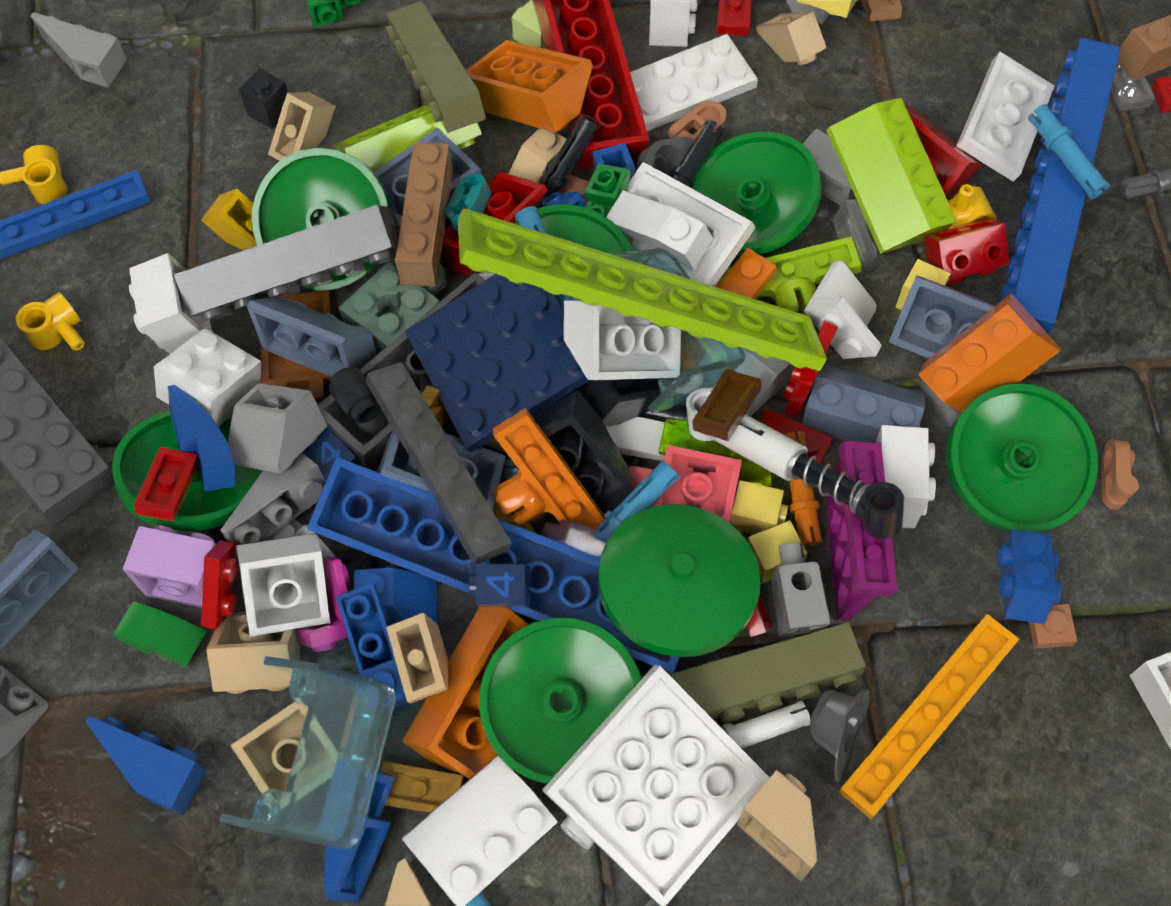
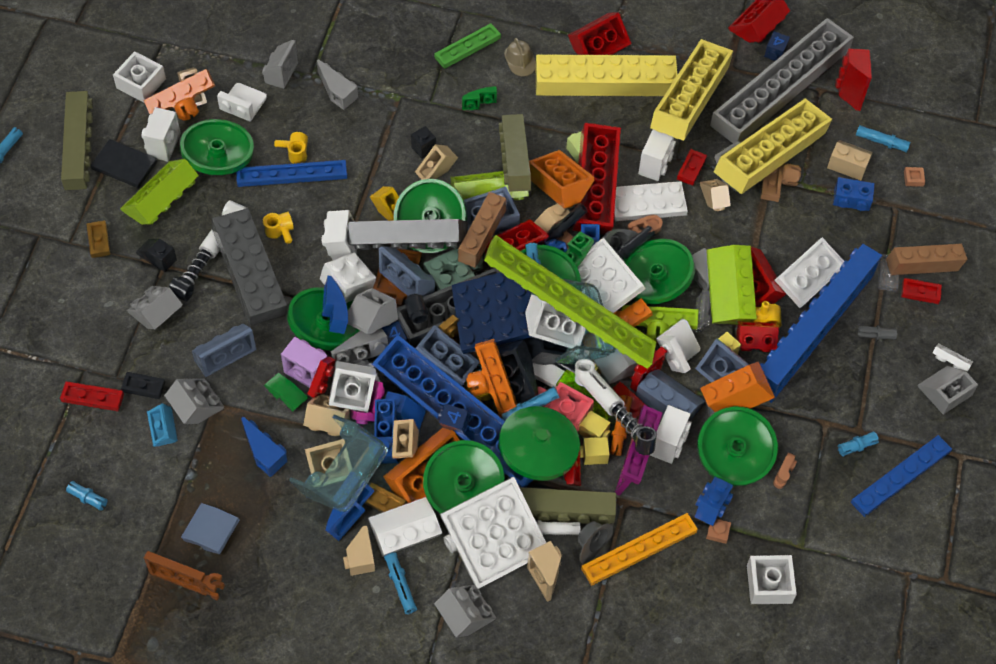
camera: 15 degrees right, 5 degrees down
(166, 484) = (313, 321): red plate -> none
(438, 463) = (444, 351): flat silver plate -> none
(471, 194) = (508, 228): teal beam -> none
(574, 536) = (497, 407): plate -> none
(661, 227) = (597, 274): white slope -> none
(726, 405) = (594, 369): reddish brown tile -> none
(796, 609) = (595, 477): light grey torso -> none
(1060, 141) = (822, 293): dark azure pin -> none

